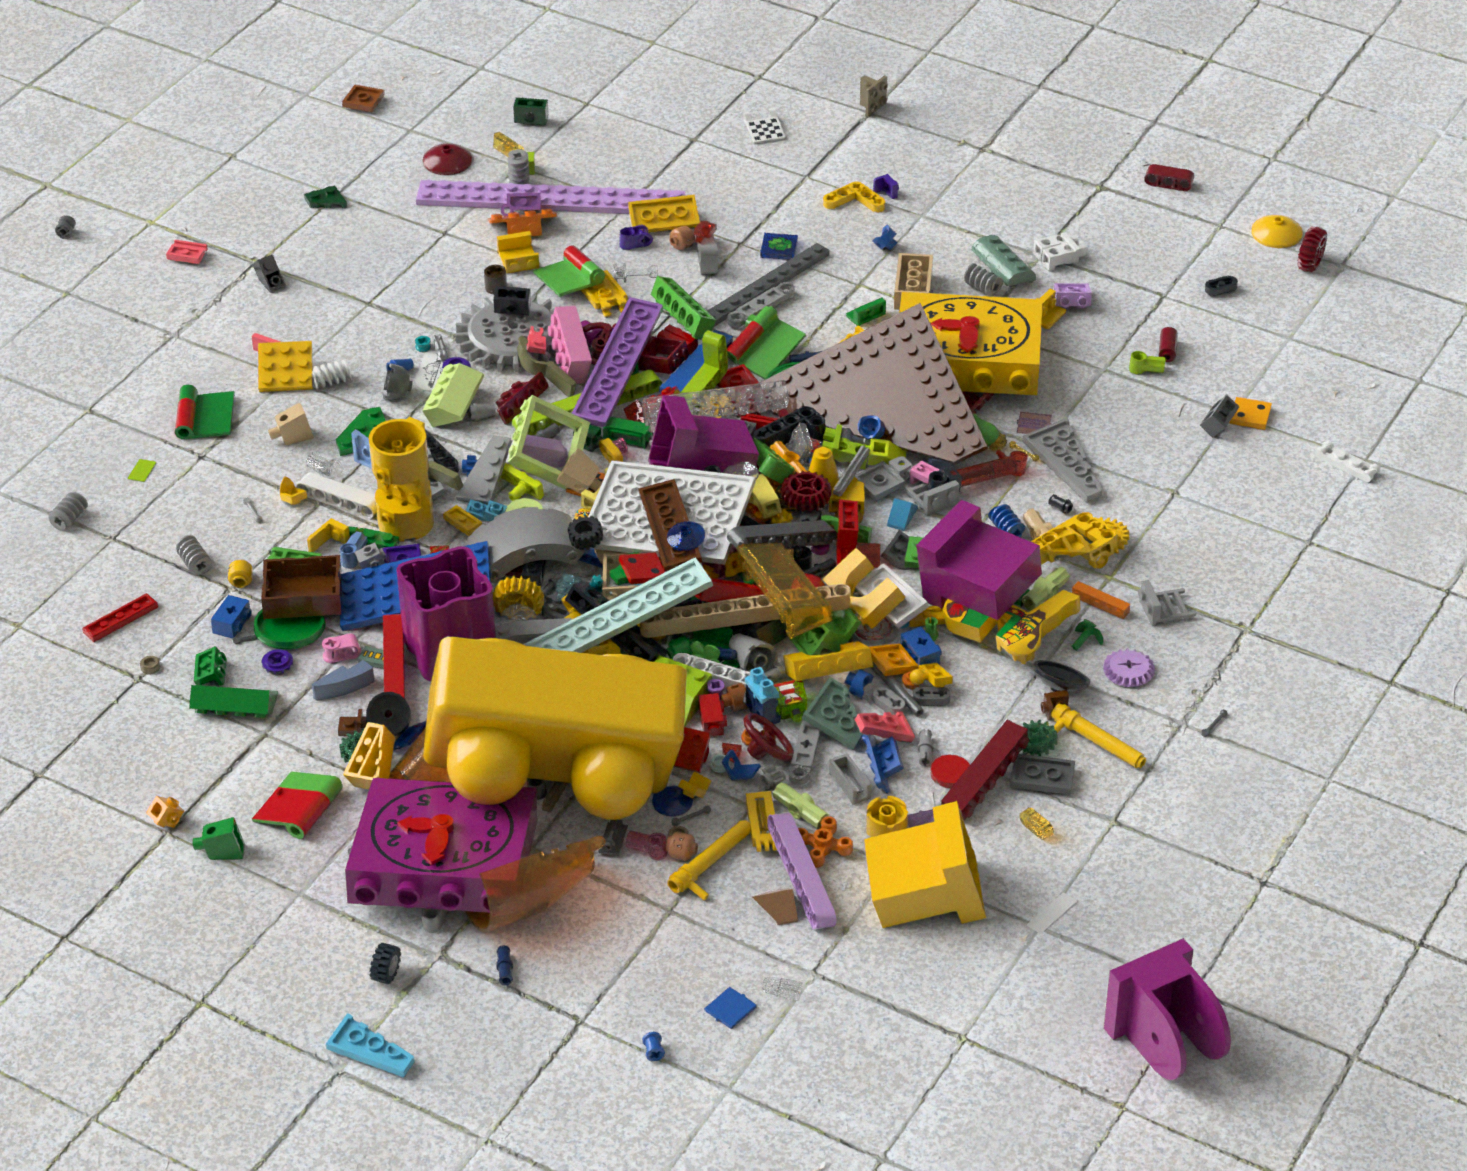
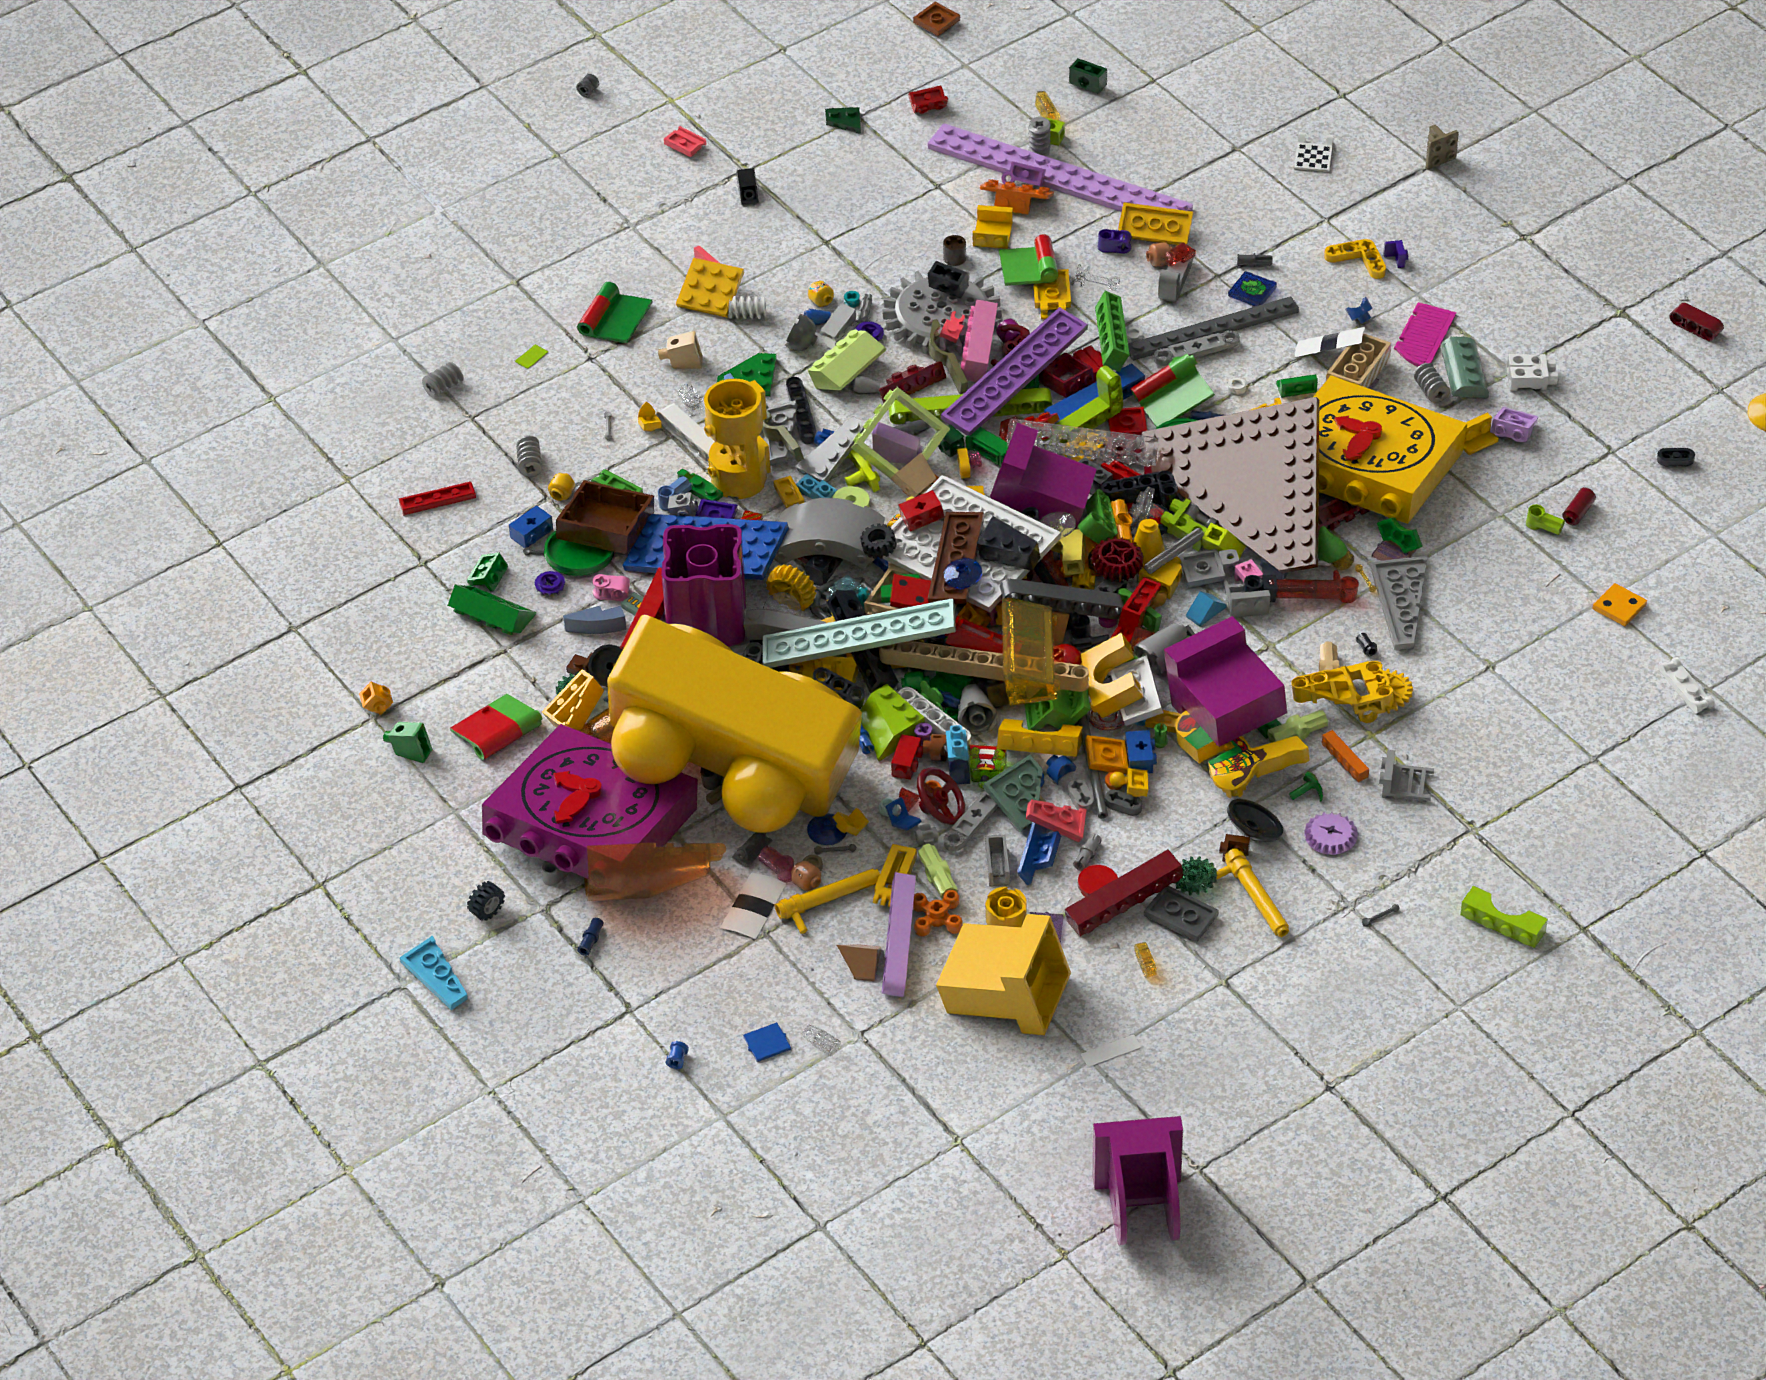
camera: 25 degrees right, 5 degrees up
(150, 665) = (439, 552): dark tan tile -> none
(331, 529) = (655, 469): yellow bracket -> none
(392, 345) = (820, 293): none -> yellow head
(395, 164) = (928, 99): none -> red bracket
(423, 364) = (839, 321): none -> light grey slope
(447, 159) = (983, 106): dark red dish -> none
(613, 495) = (921, 510): none -> red brick
(642, 888) = (753, 905): none -> white sticker
(693, 750) = (864, 783): red plate -> none
(716, 500) = (1008, 546): none -> black wedge
(766, 222) = (1253, 260): none -> dark grey axle
(775, 673) = (987, 735): light grey pin -> none
(814, 326) = (1237, 386): none -> white tile
(871, 427) = (1215, 511): blue piece -> none
(877, 268) = (1329, 342): none -> white sticker
(891, 551) = (1155, 645): none -> light grey cone
(948, 244) = (1424, 333): none -> dark pink piece
(1006, 520) = (1299, 649): blue piece -> none
(1027, 404) = (1405, 538): none -> green tile
(1219, 416) = (1580, 599): dark grey brick -> none
(1300, 691) = (1525, 928): none -> lime arch

